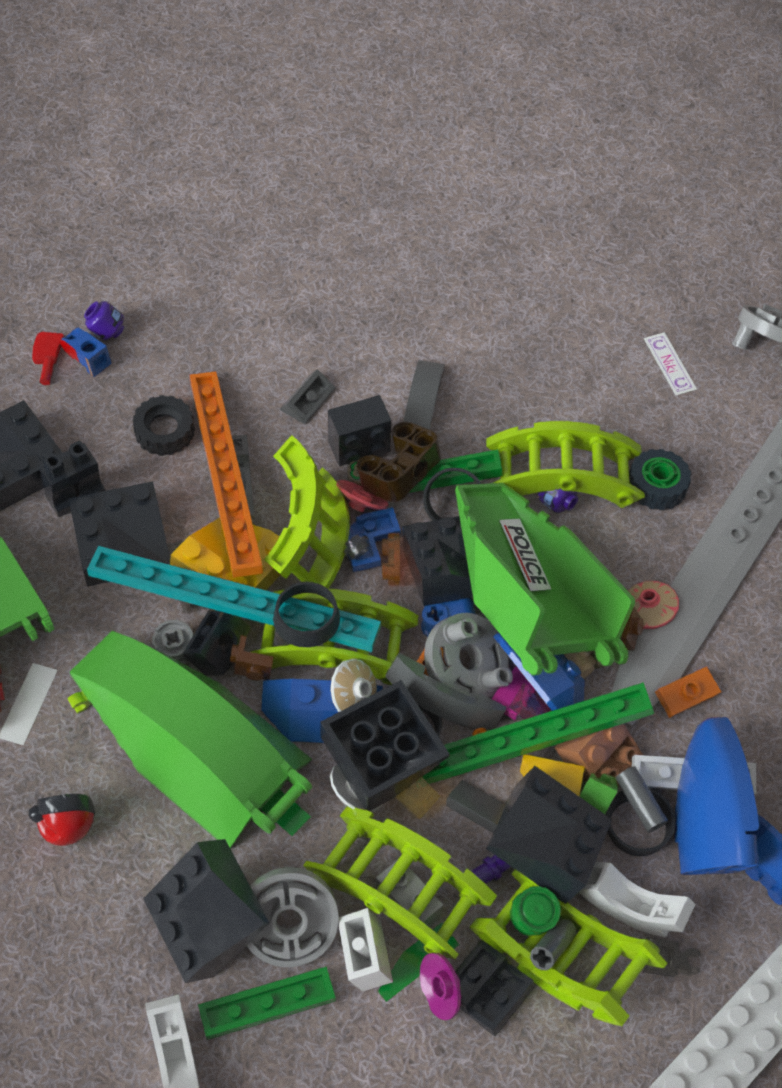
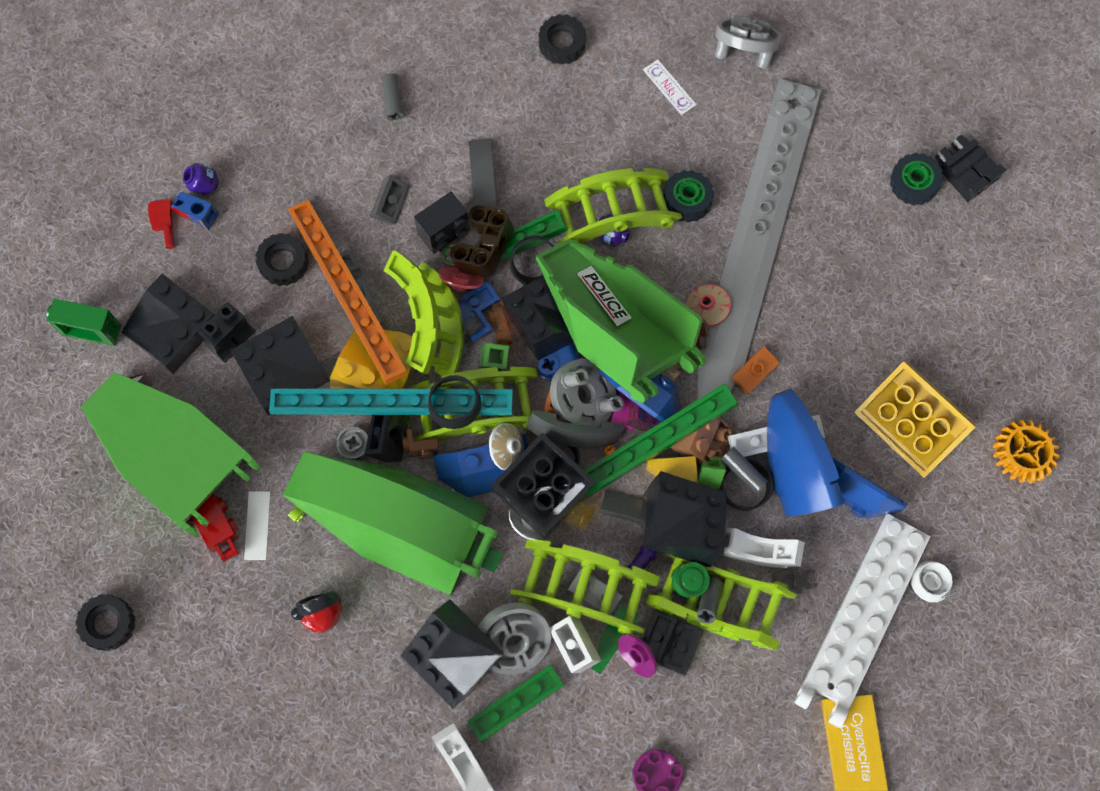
camera: 15 degrees left, 15 degrees up
(347, 294) = (392, 96): none -> dark grey piece
(374, 584) = (493, 356): none -> bright green brick
(562, 268) = (567, 24): none -> black tyre

